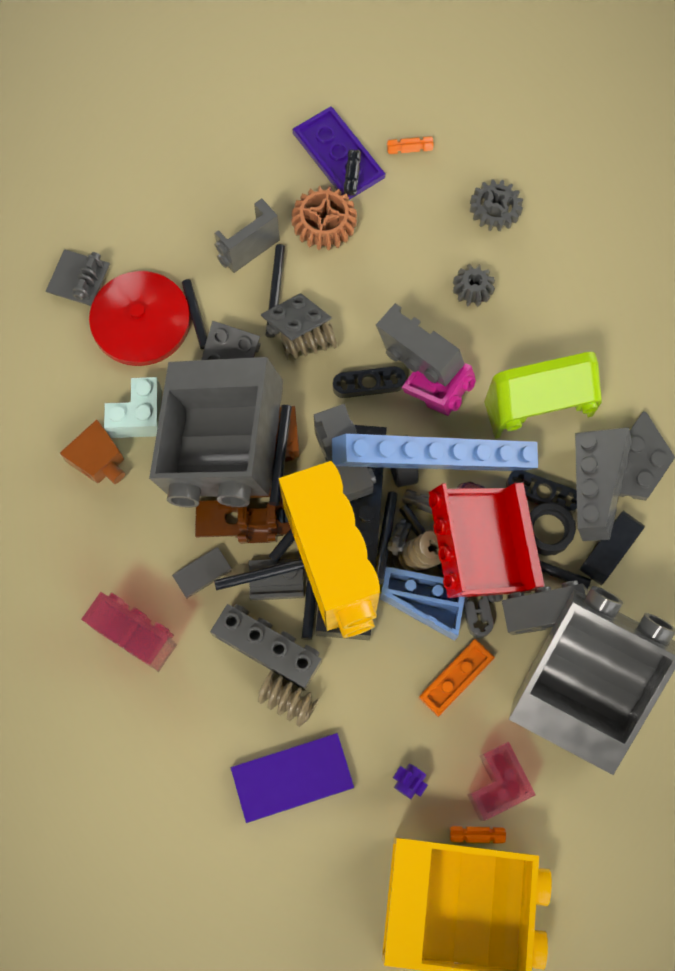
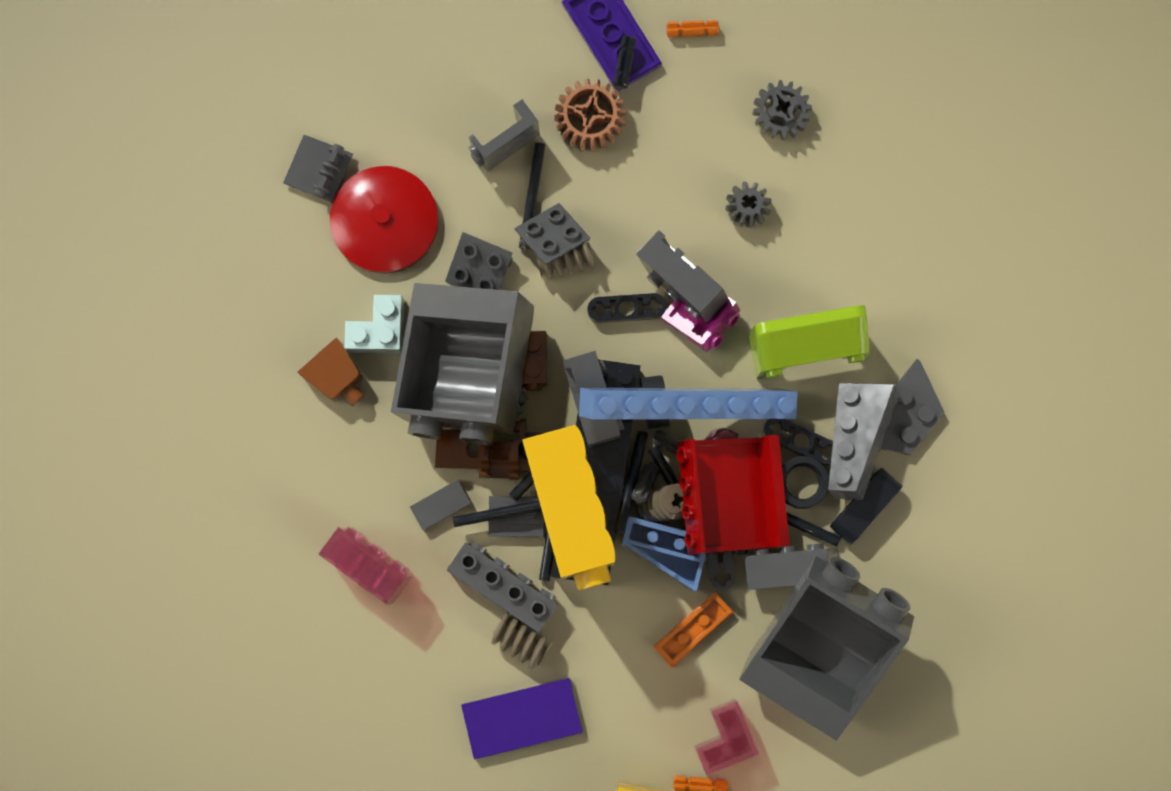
camera: 10 degrees right, 10 degrees up
(195, 312) = (444, 217): black bar -> none
(280, 454) = (527, 389): black bar -> none
(410, 781) = (637, 730): dark purple gear -> none

